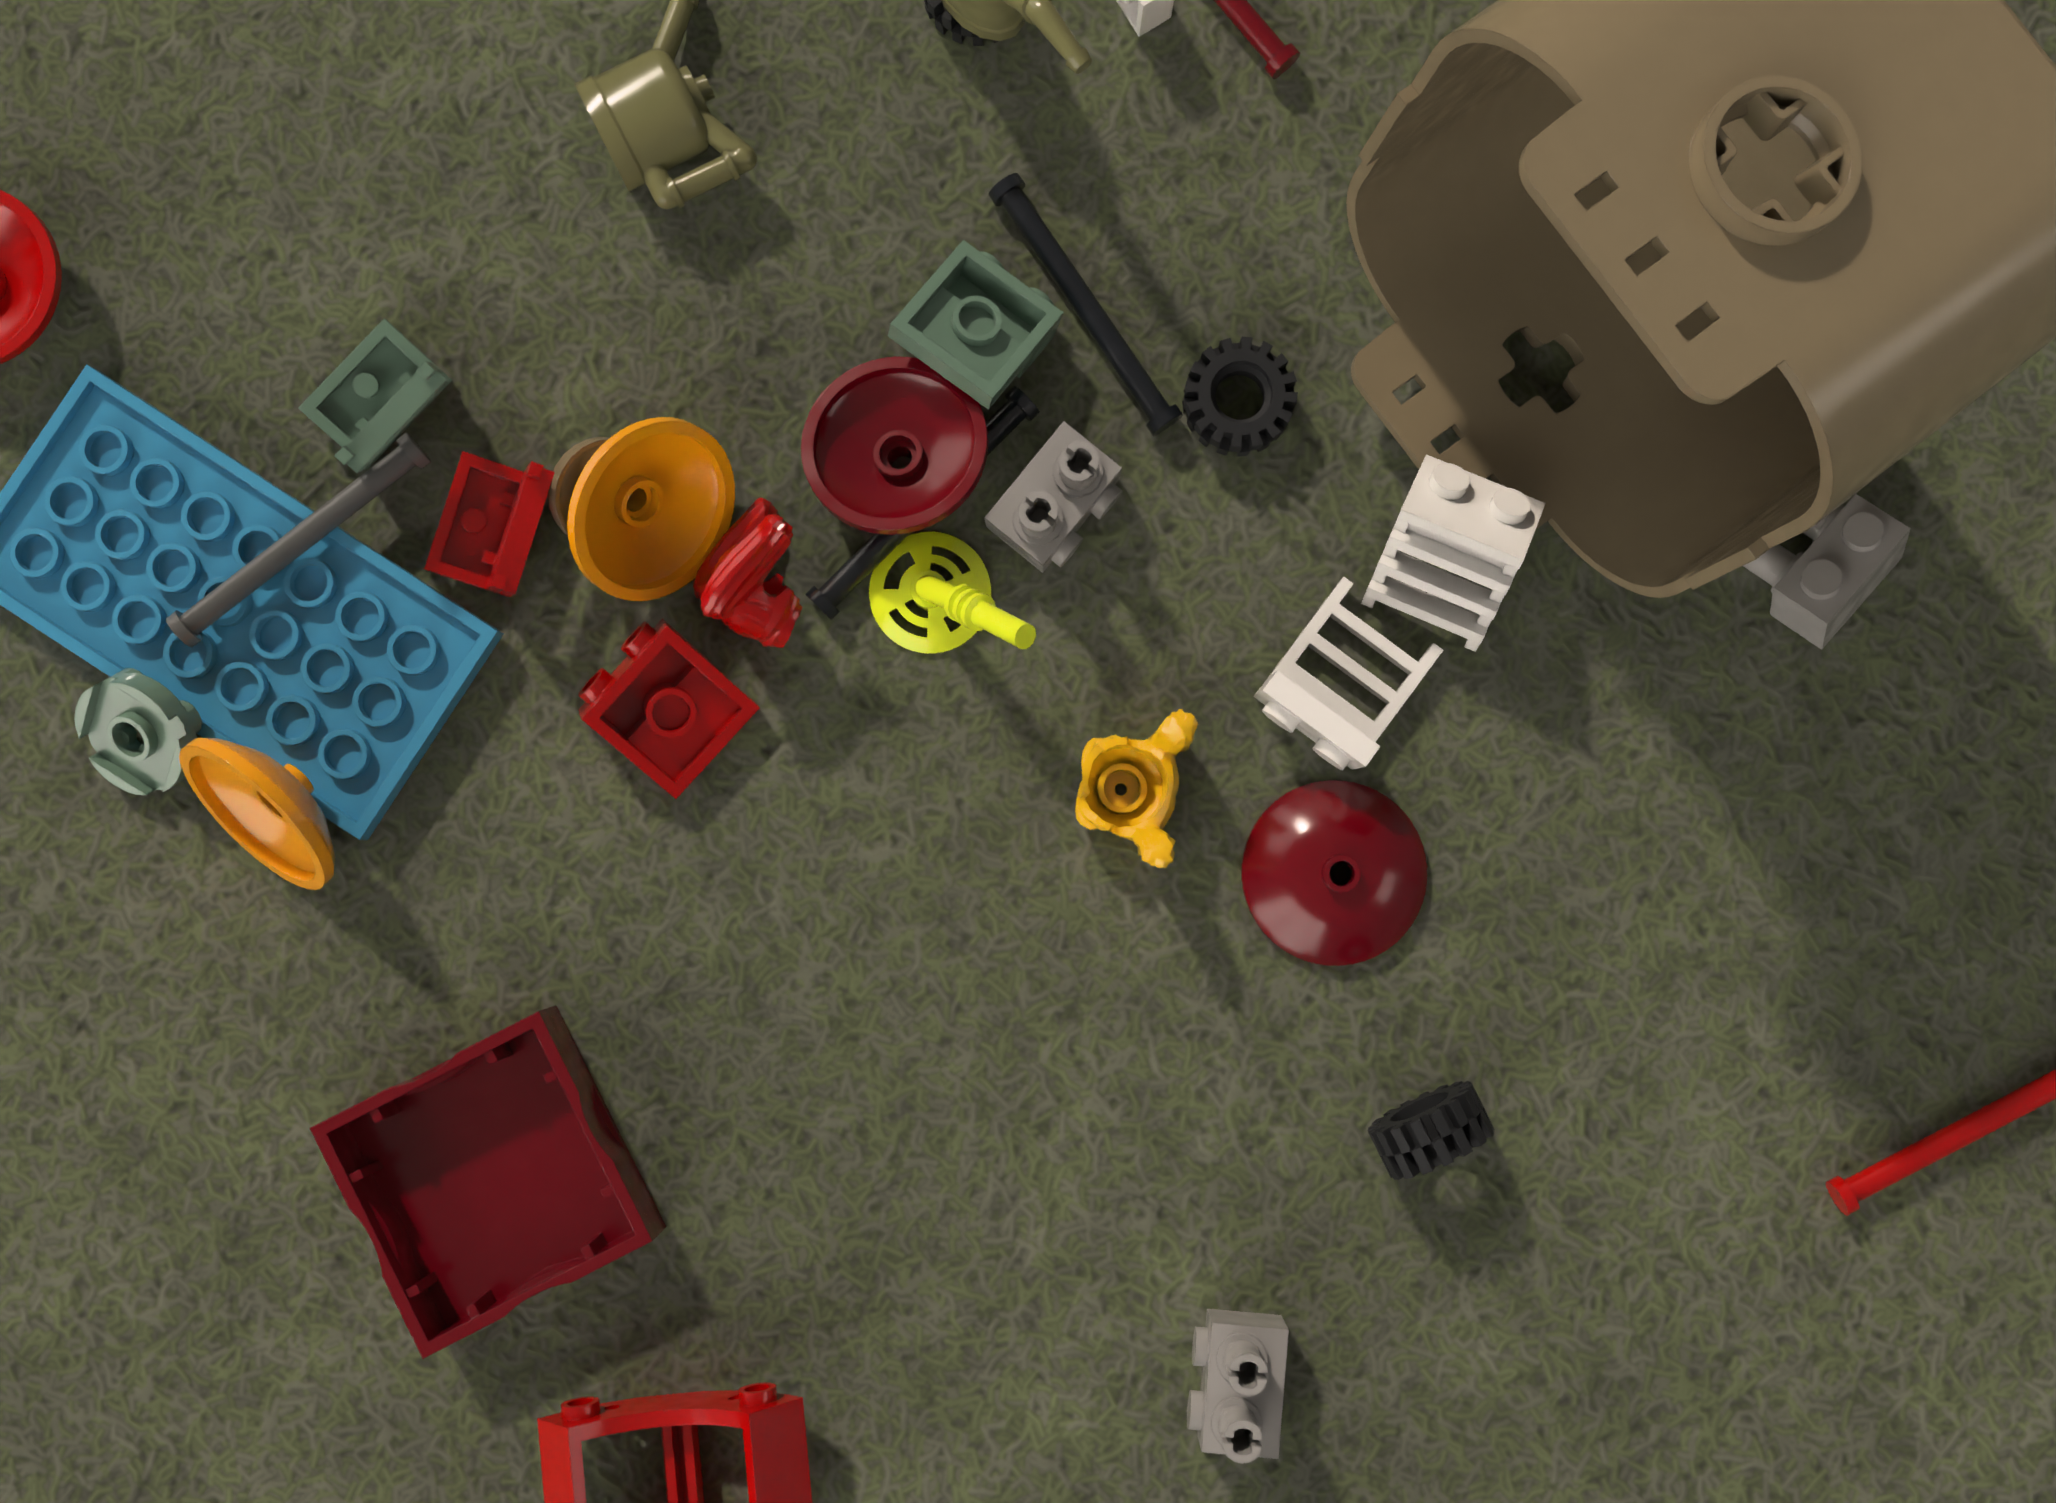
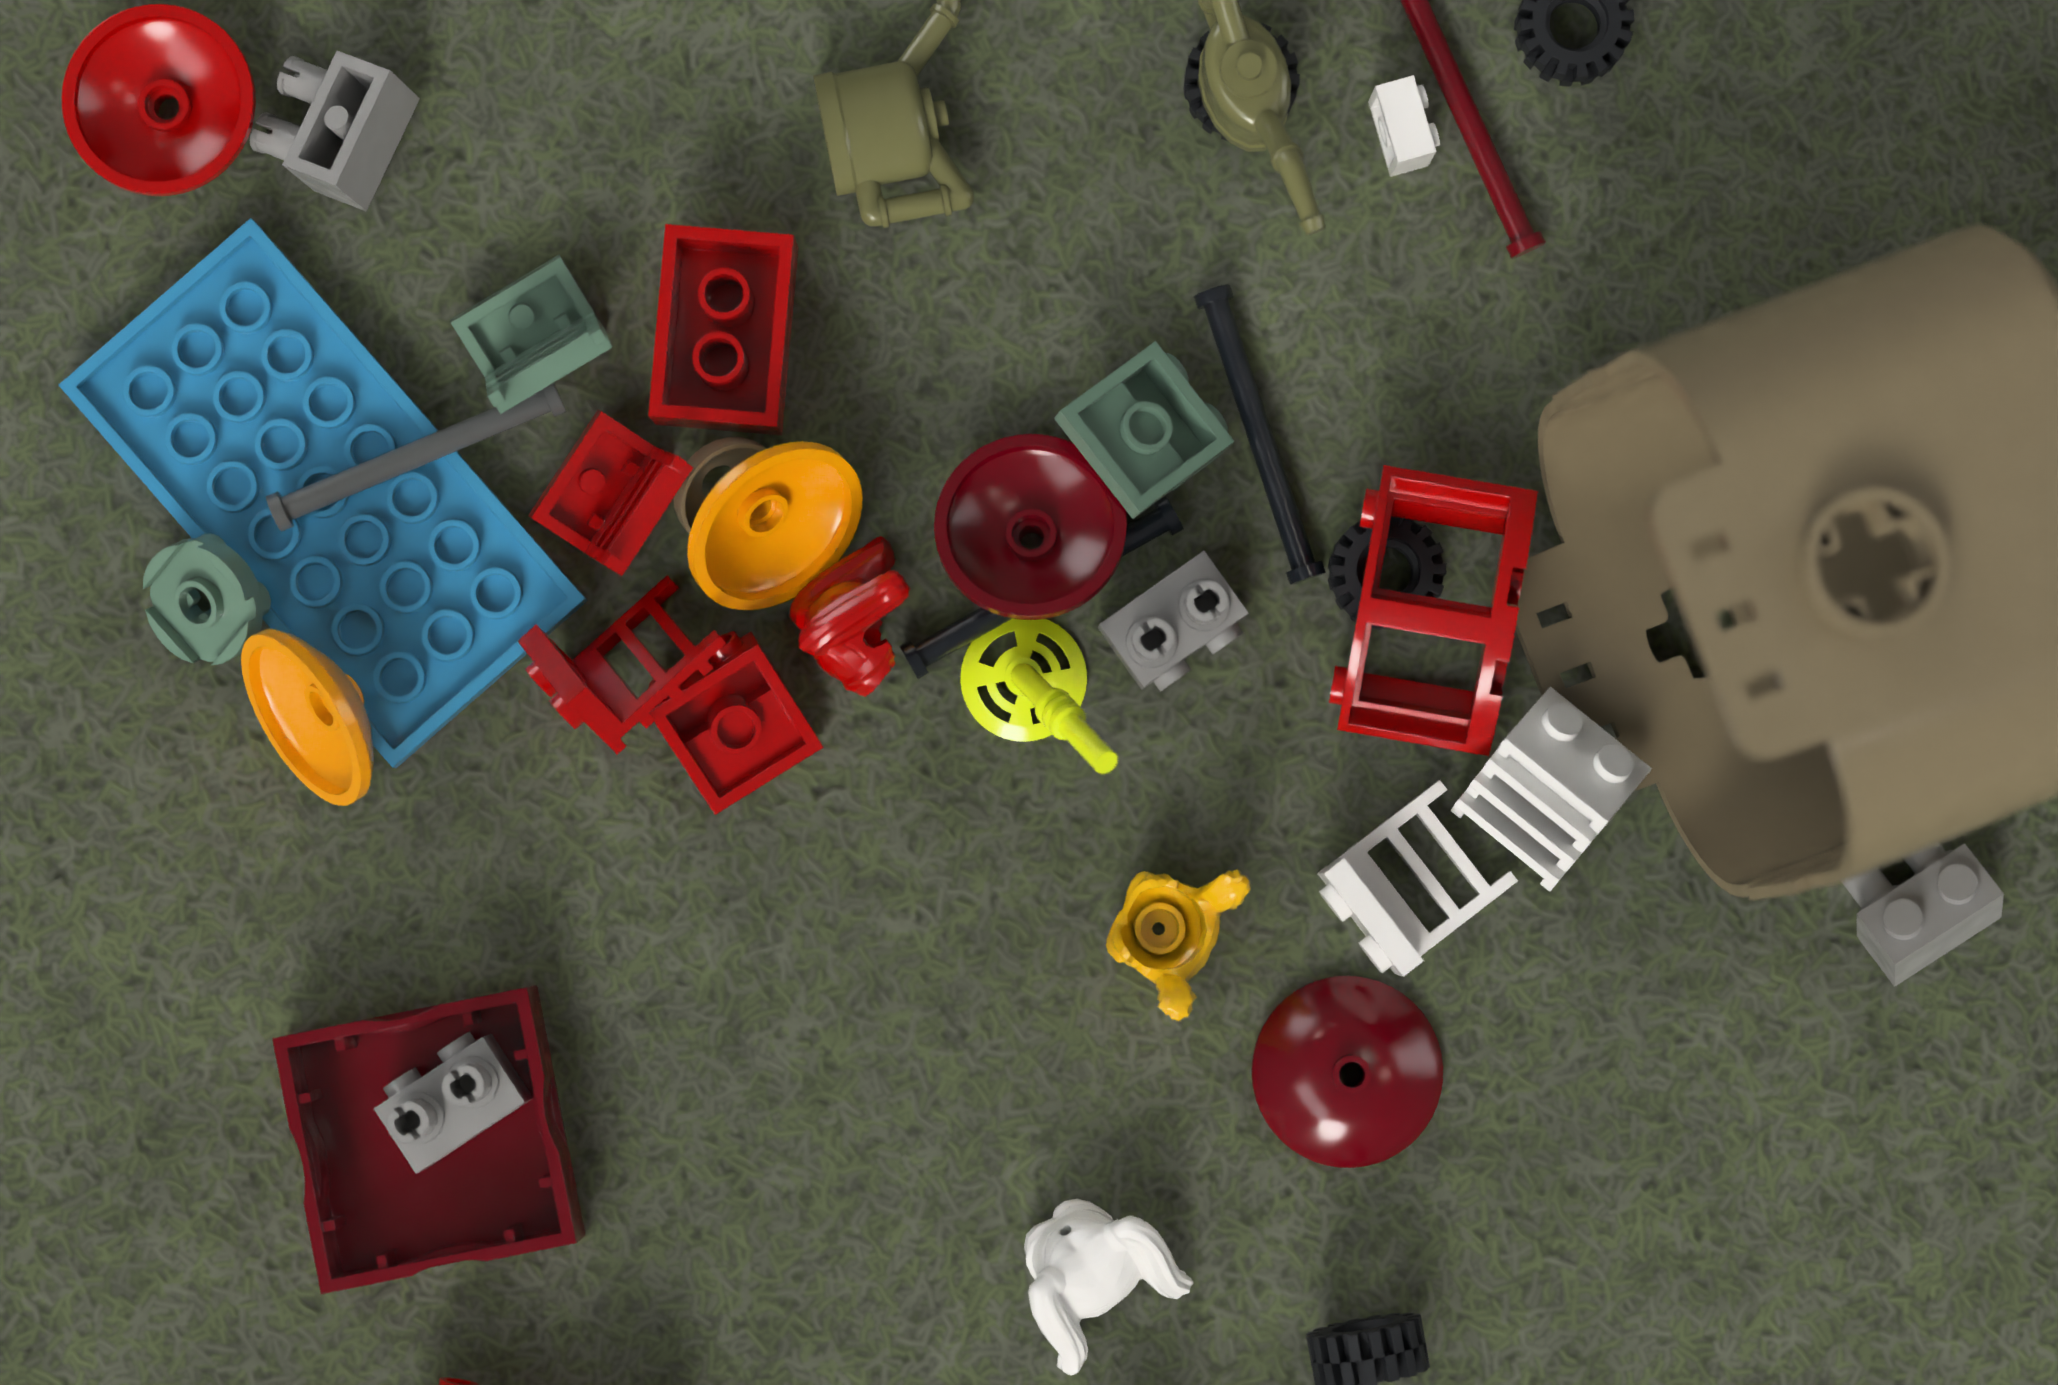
camera: 10 degrees right, 0 degrees up
(150, 257) = (347, 131): none -> light grey brick
(500, 1140) = (452, 1102): none -> light grey brick
(527, 711) = (592, 688): none -> red plate
(554, 341) = (723, 329): none -> red brick
(1144, 1124) = (1087, 1266): none -> white hair
(1314, 516) = (1415, 709): none -> red window

